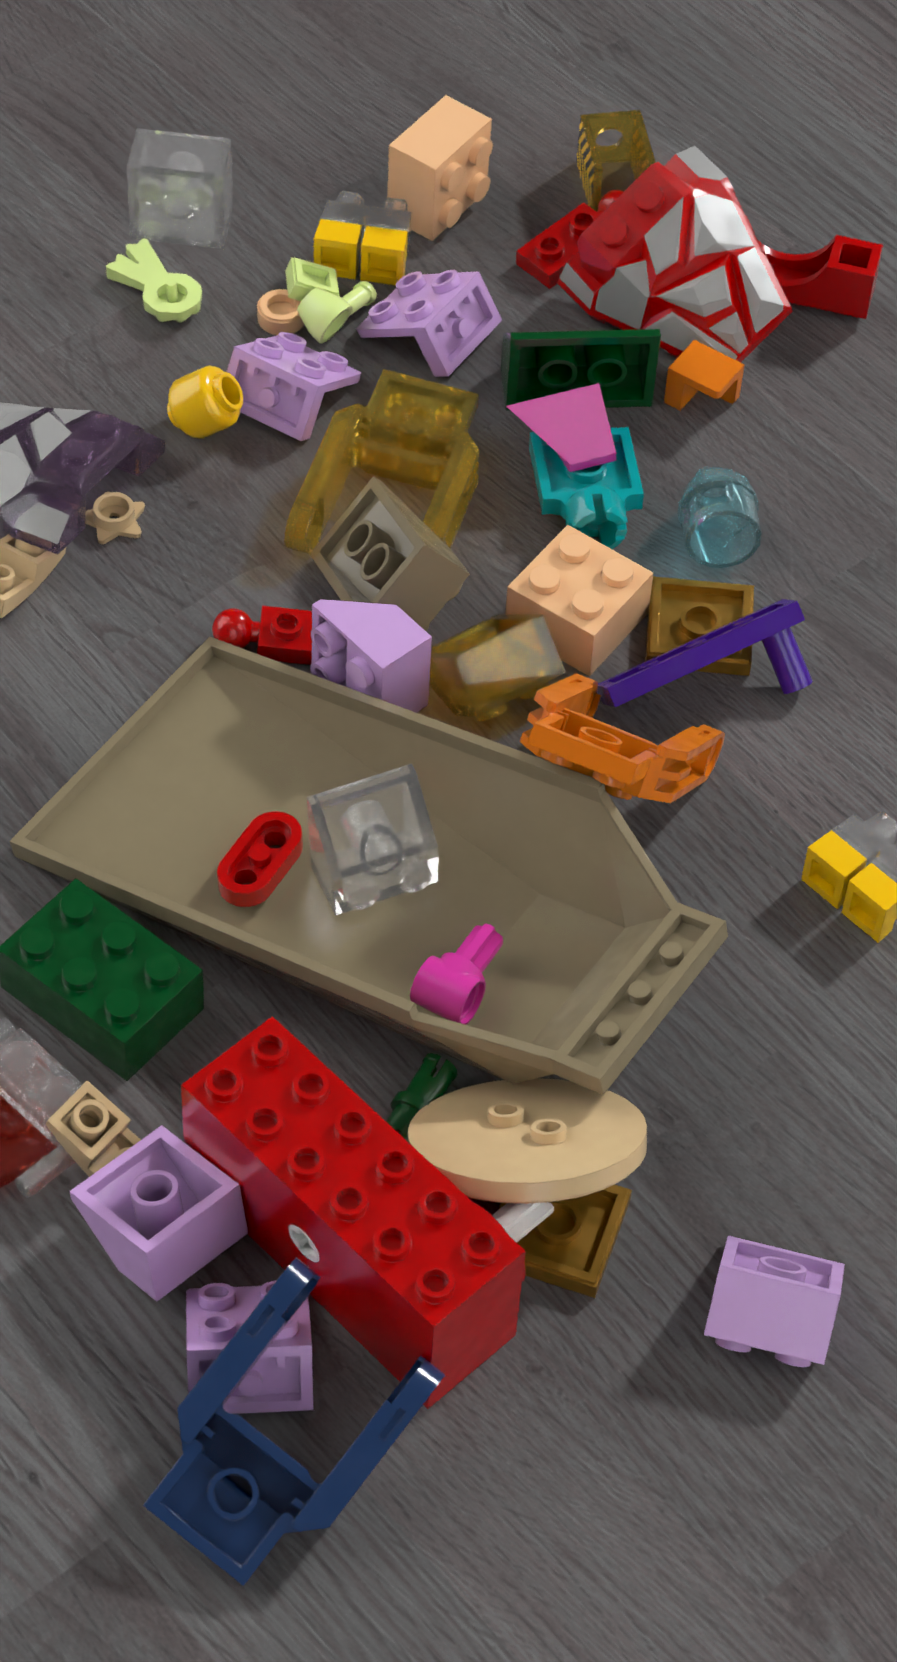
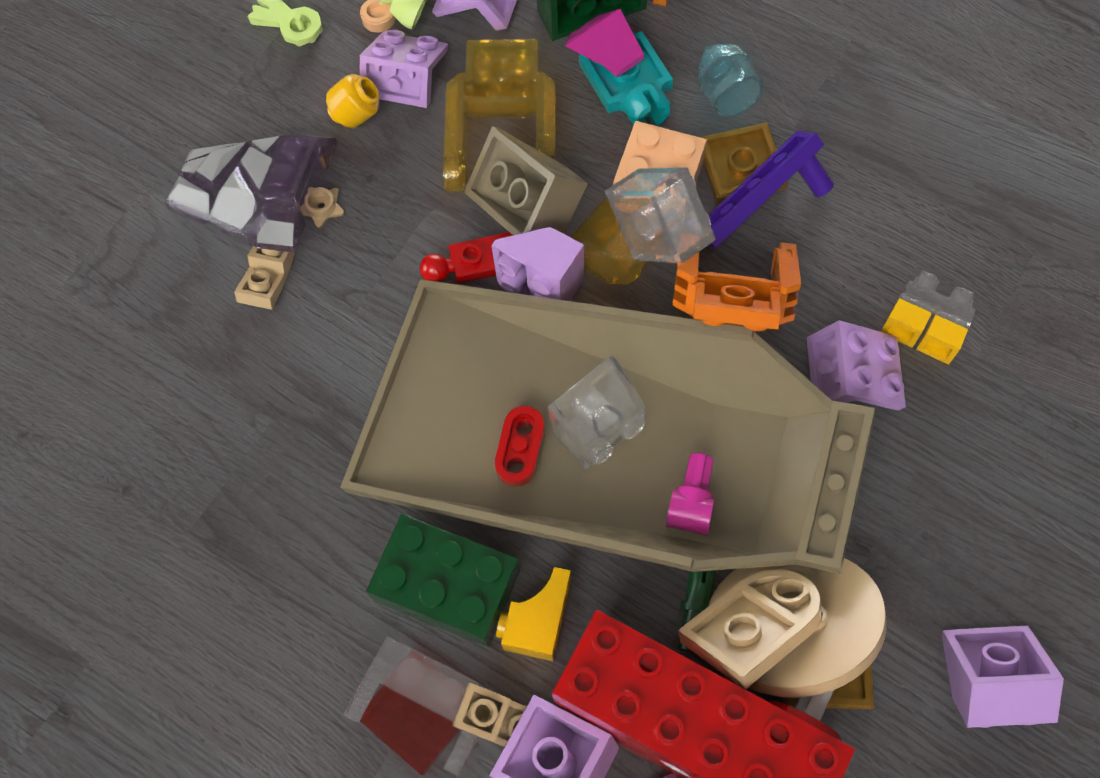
camera: 10 degrees left, 15 degrees up
(191, 1046) = (535, 625): none -> yellow arch
(470, 1111) = (754, 625): none -> tan plate
(544, 628) = (661, 214): none -> clear brick
(757, 896) = (856, 365): none -> lavender bracket

